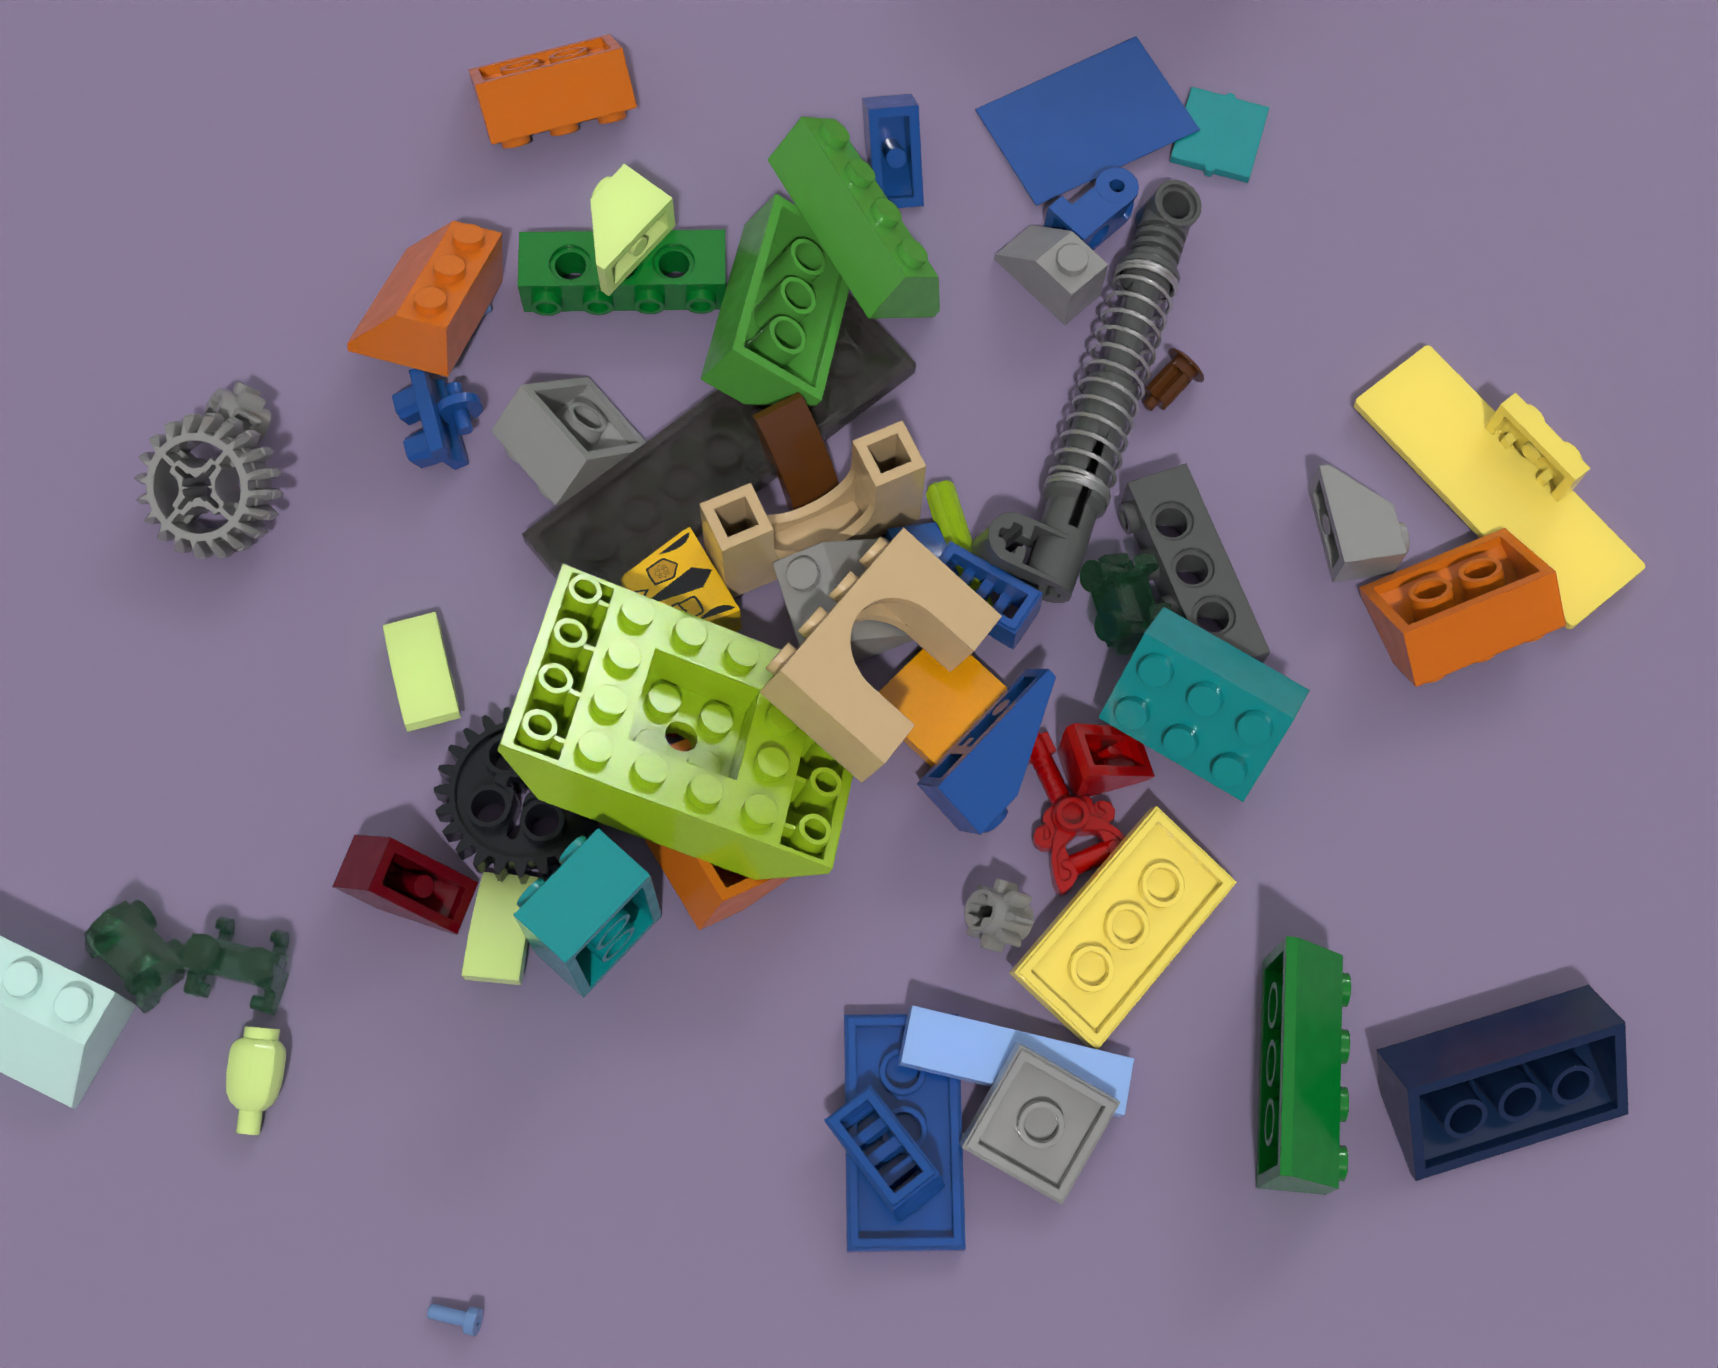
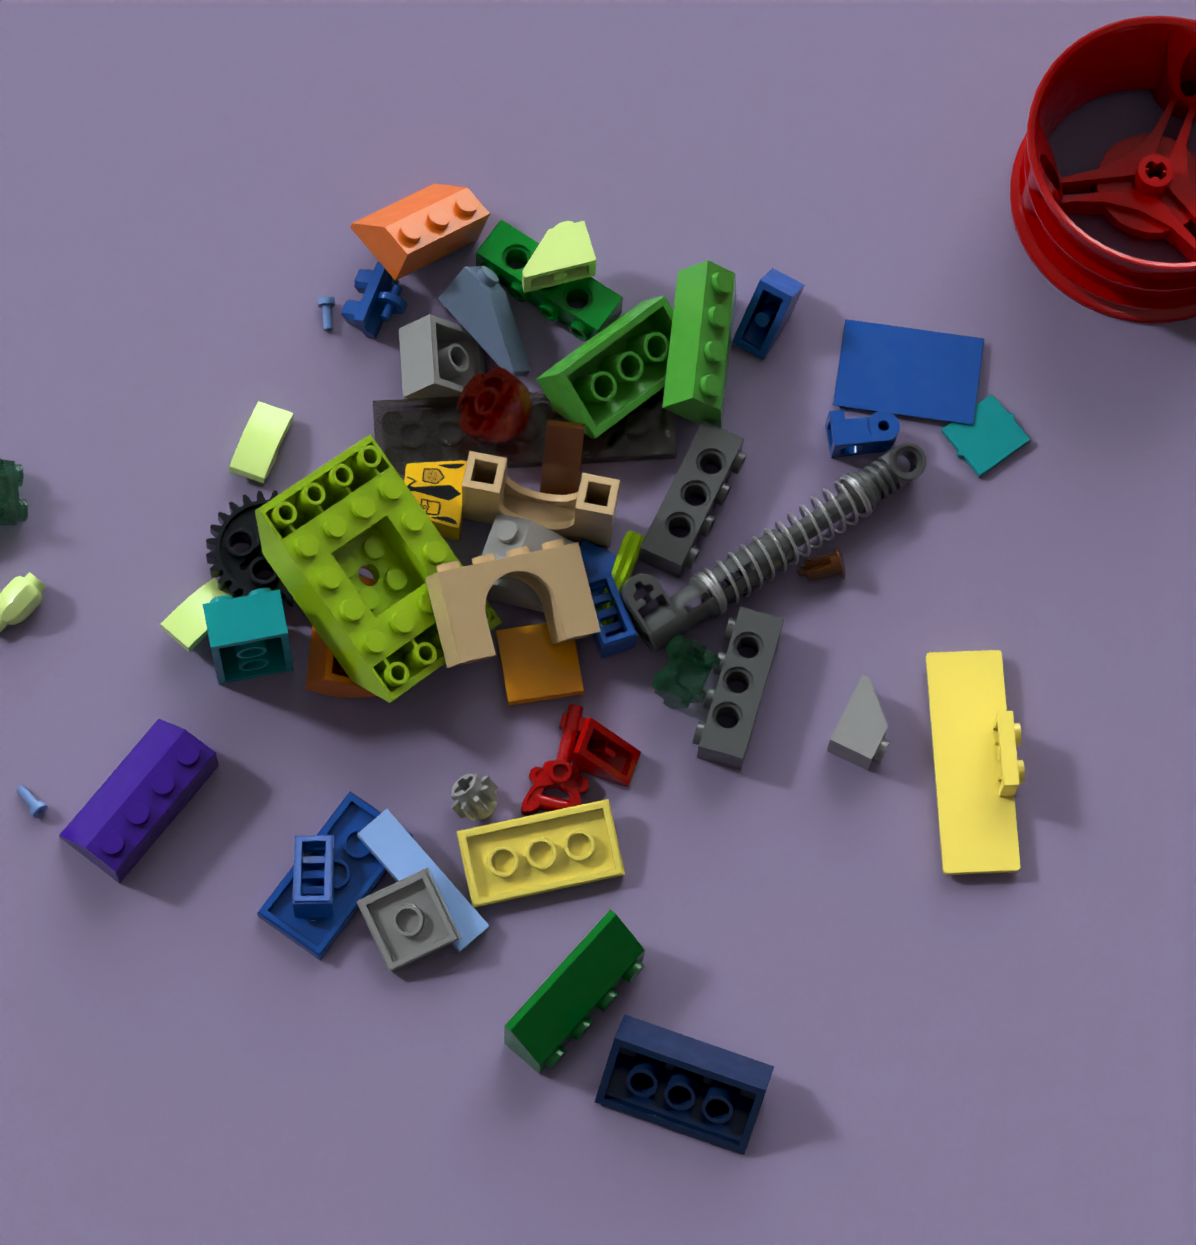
camera: 35 degrees right, 0 degrees up
(179, 487) = (233, 267): light grey gear -> none
(238, 963) = (49, 535): clear green piece -> none
(242, 404) = (263, 224): light grey gear -> none
(380, 461) = (326, 304): none -> medium blue piece
(405, 882) = (167, 554): dark red slope -> none
(553, 90) = (591, 139): orange slope -> none
(579, 349) = (487, 316): none -> sand blue slope
(593, 1214) = (140, 798): none -> dark purple slope
(678, 440) = (494, 406): none -> clear red cylinder
(979, 478) = (710, 446): none -> dark grey brick
(990, 759) = (532, 709): blue slope -> none
(1055, 269) = (807, 452): light grey slope -> none
(1203, 703) = (678, 760): teal brick -> none
(1464, 606) = (882, 814): orange slope -> none

